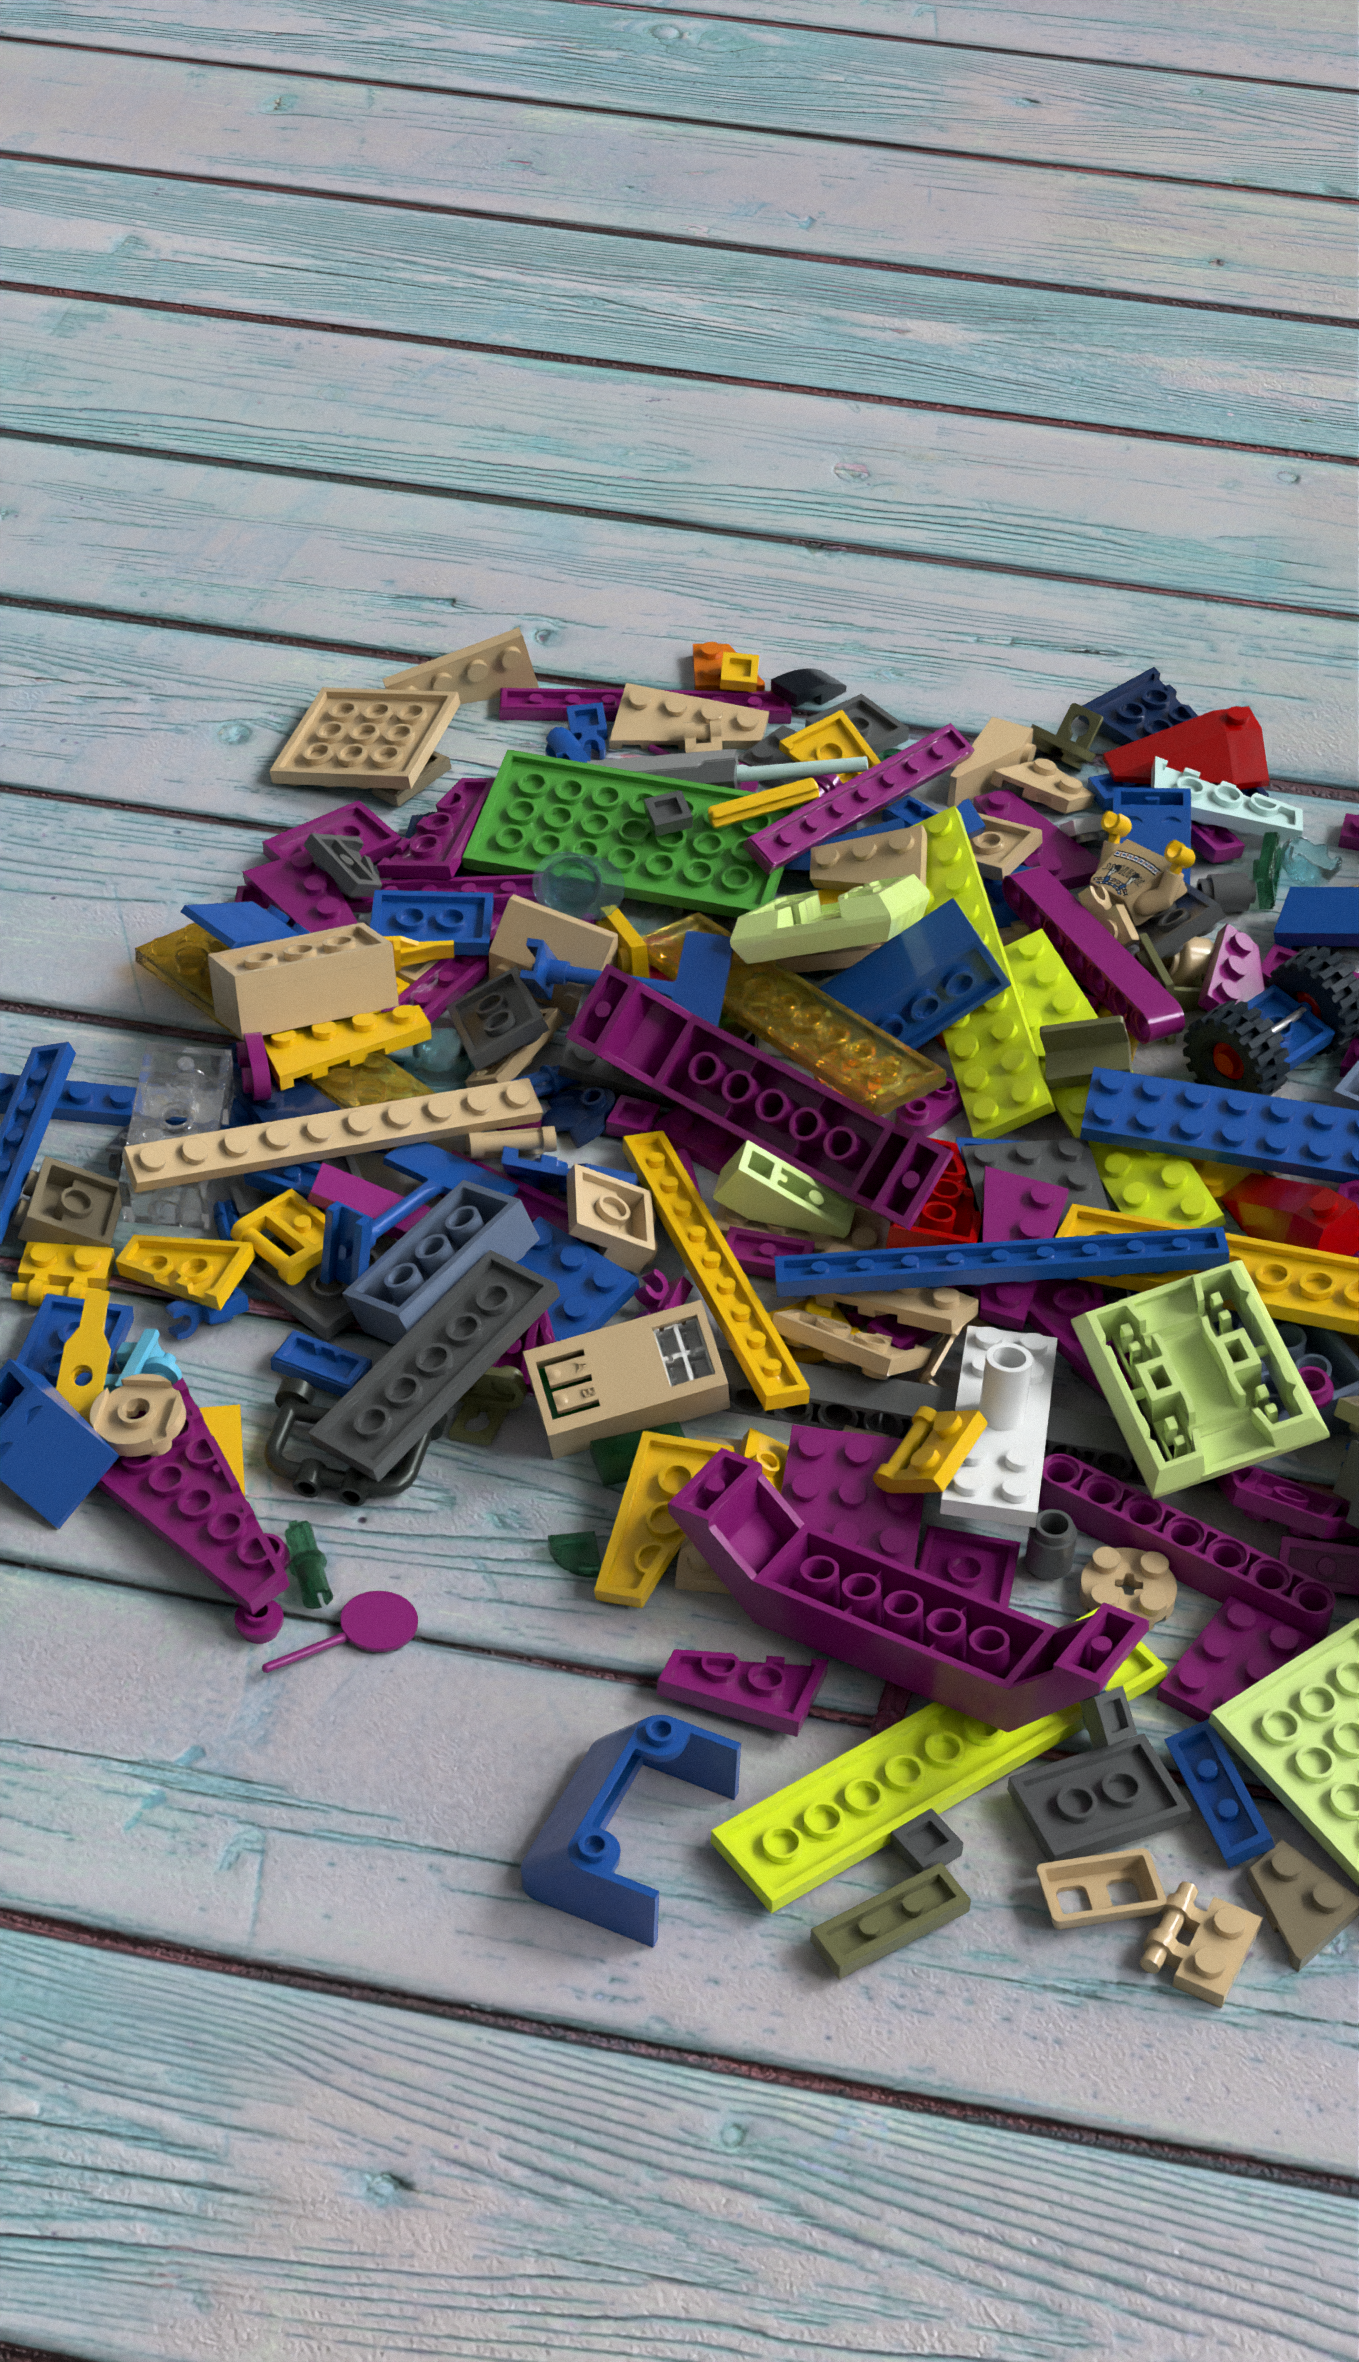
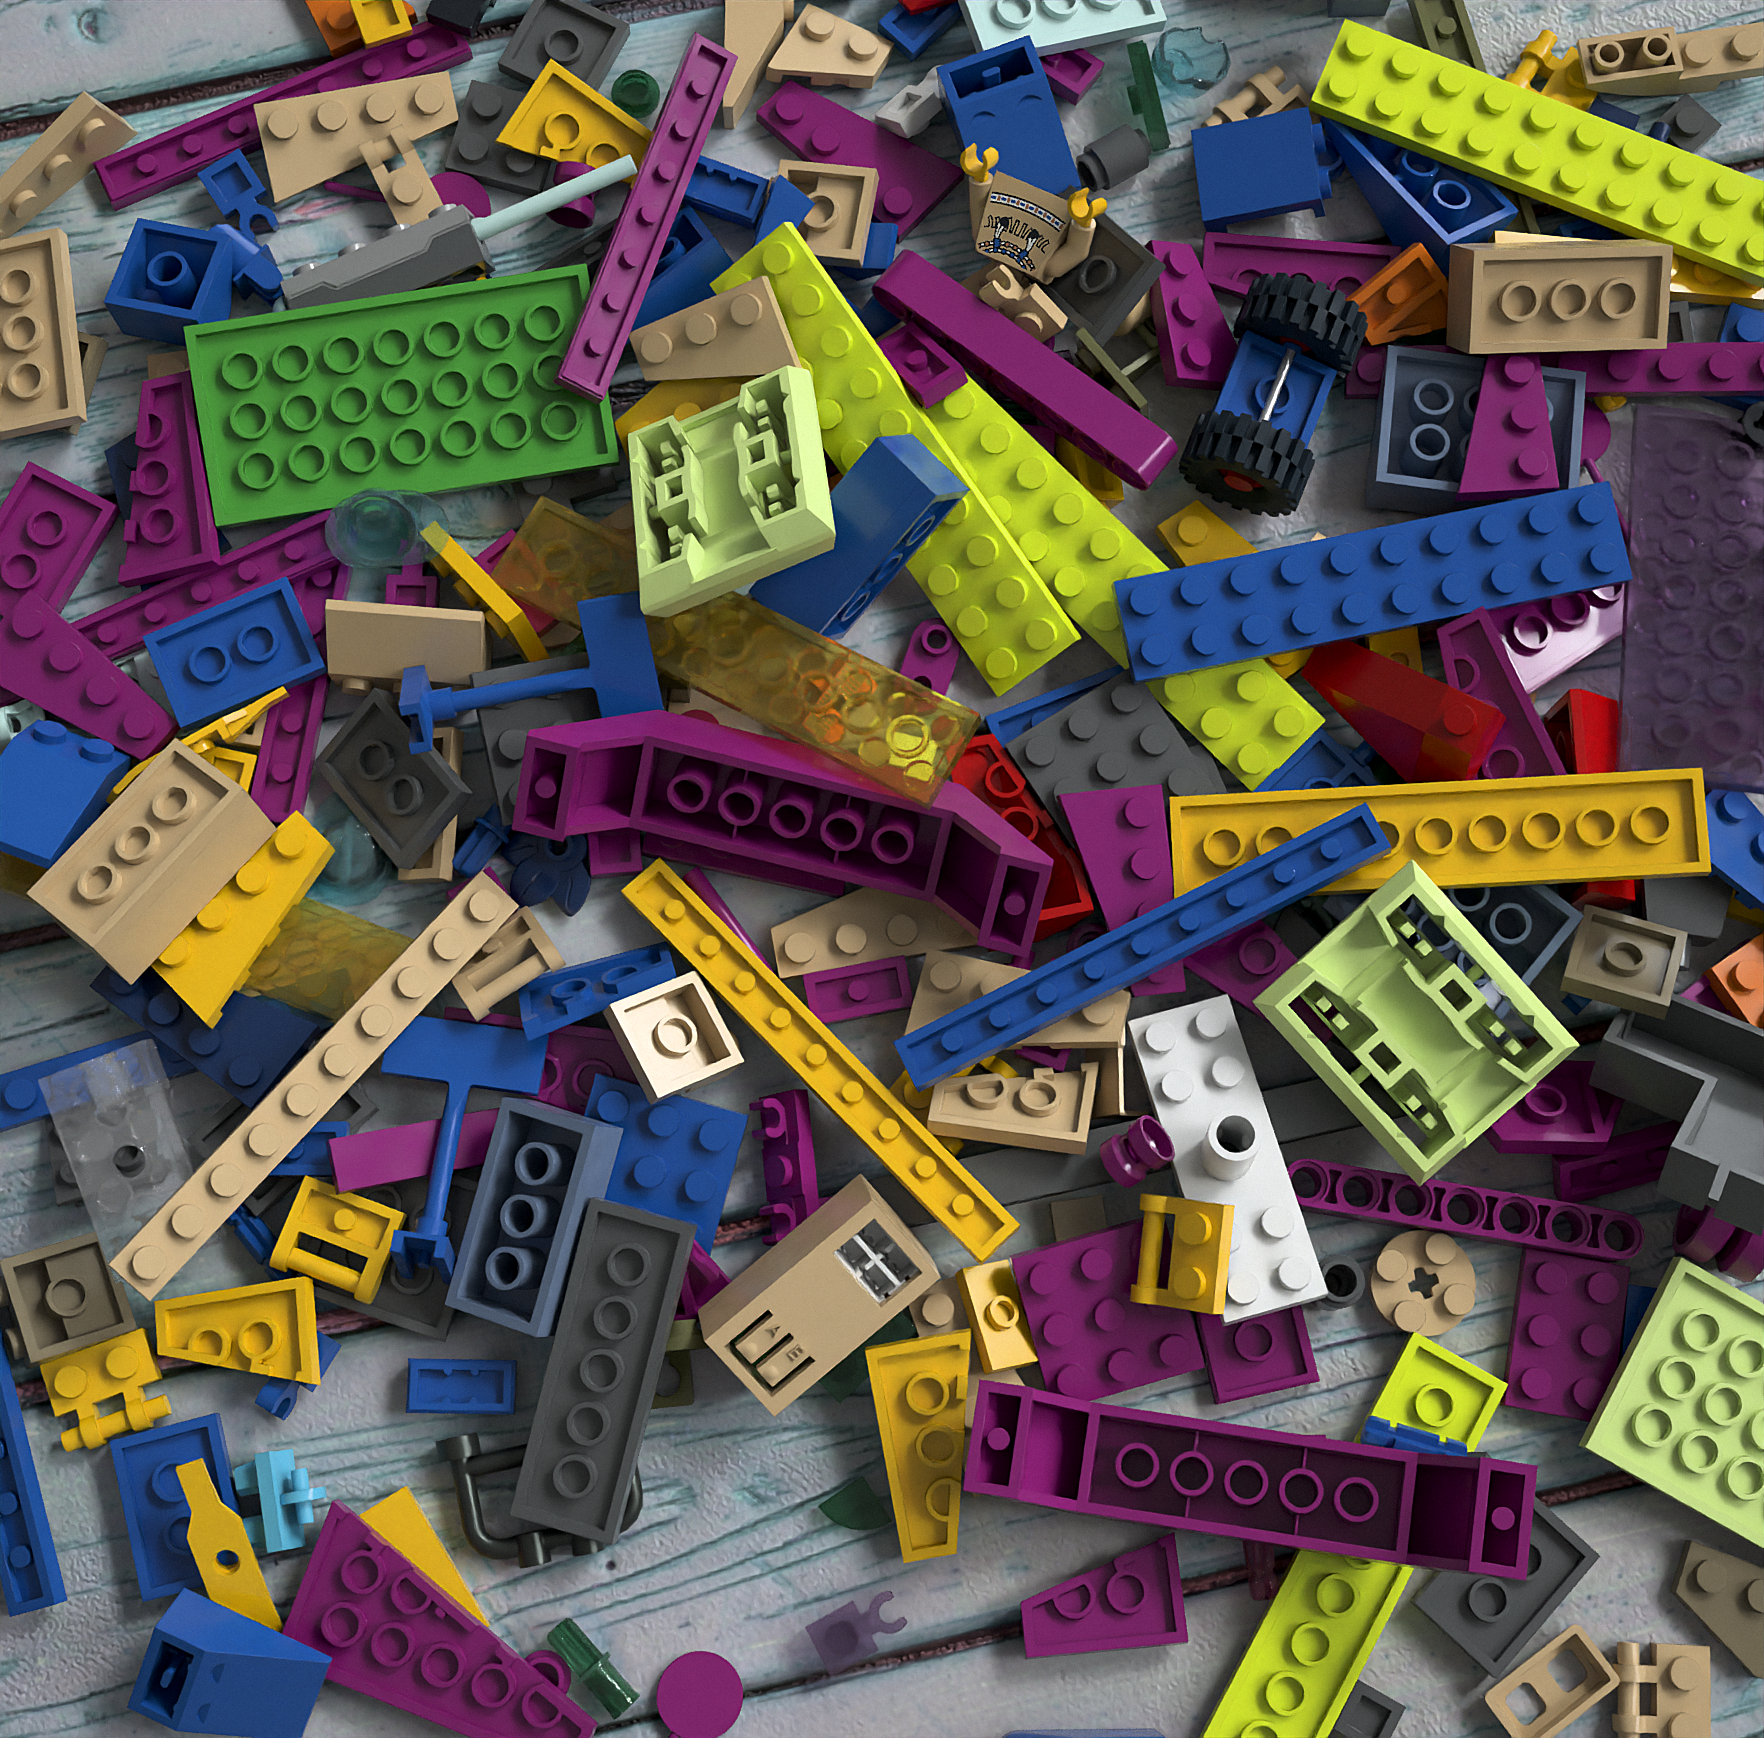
camera: 30 degrees left, 35 degrees up
(145, 1435) = (305, 1617): tan plate -> none
(256, 1074) = (181, 1040): magenta plate -> none
(342, 860) = (85, 608): dark grey wing -> none
(510, 729) = (171, 281): none -> blue slope
(520, 1620) = (846, 1635): none -> clear purple plate
(668, 813) = (438, 364): dark grey plate -> none
(763, 803) = (544, 296): yellow axle -> none
(780, 1194) = (845, 922): yellowish green slope -> none
(929, 1383) = (1141, 1148): none -> magenta wheel
(1017, 924) = (922, 364): none -> magenta plate
(1080, 1045) = (1096, 561): olive panel -> none
(1219, 1793) = (1615, 1516): blue plate -> none
(1318, 1385) = (1536, 957): magenta plate -> none

